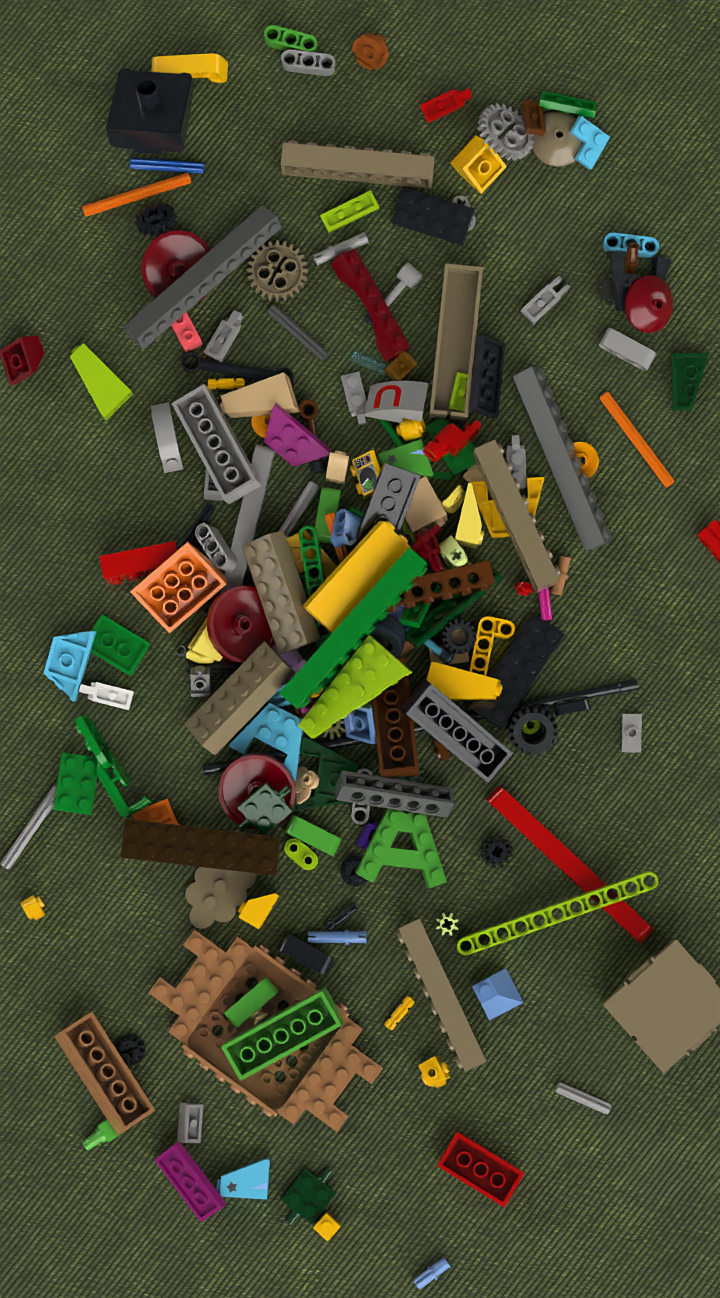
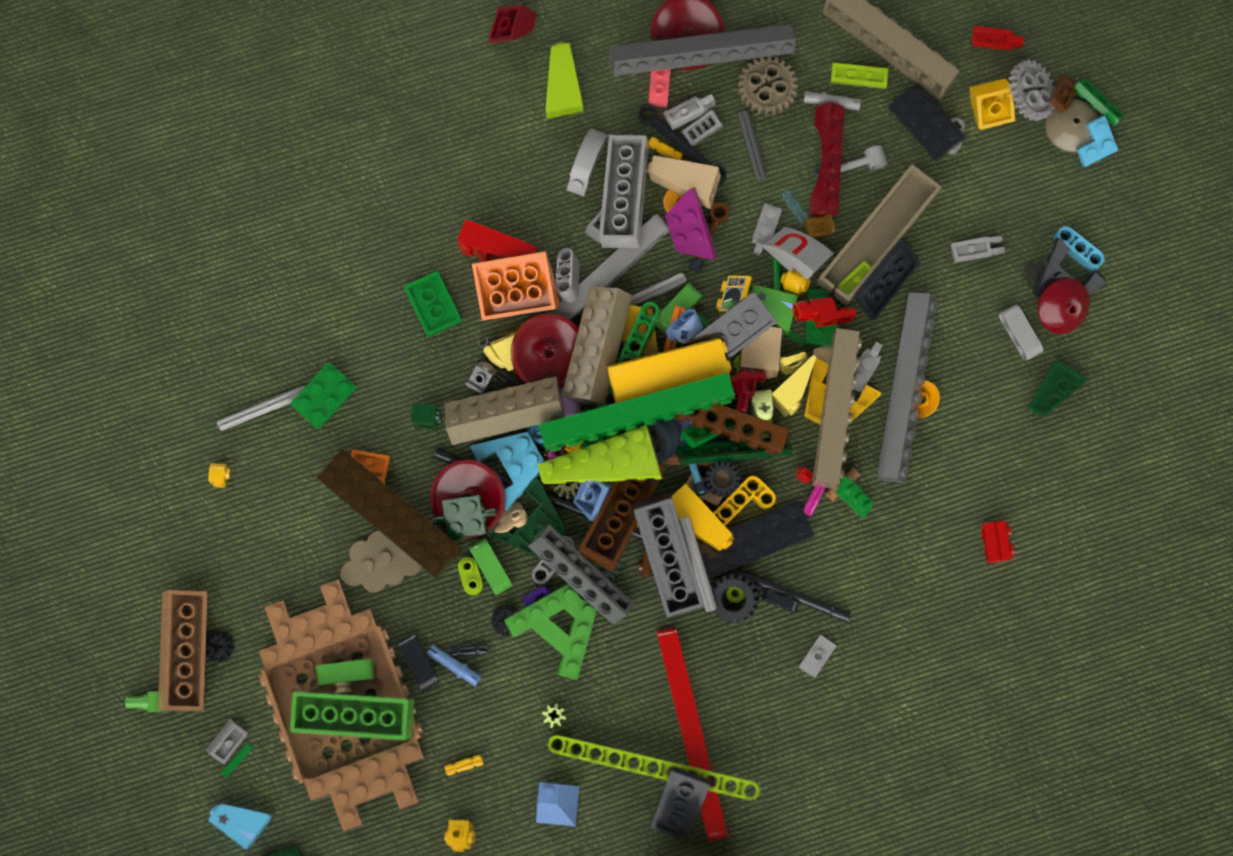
camera: 30 degrees right, 5 degrees down
(69, 660) = (384, 291): medium azure wing -> none
(106, 760) = (360, 390): green plate -> none
(108, 695) = (398, 340): white hinge -> none
(176, 745) = (425, 416): none -> dark green brick
(190, 1181) = (192, 790): magenta plate -> none
(203, 517) = (575, 246): black axle -> none
(208, 1133) = (239, 757): none -> green piece
(257, 331) = (712, 129): none -> light grey slope
(257, 909) = (402, 597): yellow slope -> none
(337, 467) = (712, 274): tan slope -> none
(442, 995) = (509, 772): dark tan brick -> none
(485, 722) = (697, 564): none -> light grey axle
(502, 855) = (632, 676): black gear -> none
(578, 581) = (854, 497): none -> green plate
(599, 928) = (680, 803): none -> black plate
(631, 260) = (1072, 259): reddish brown pin -> none
(636, 439) = (981, 412): orange axle -> none

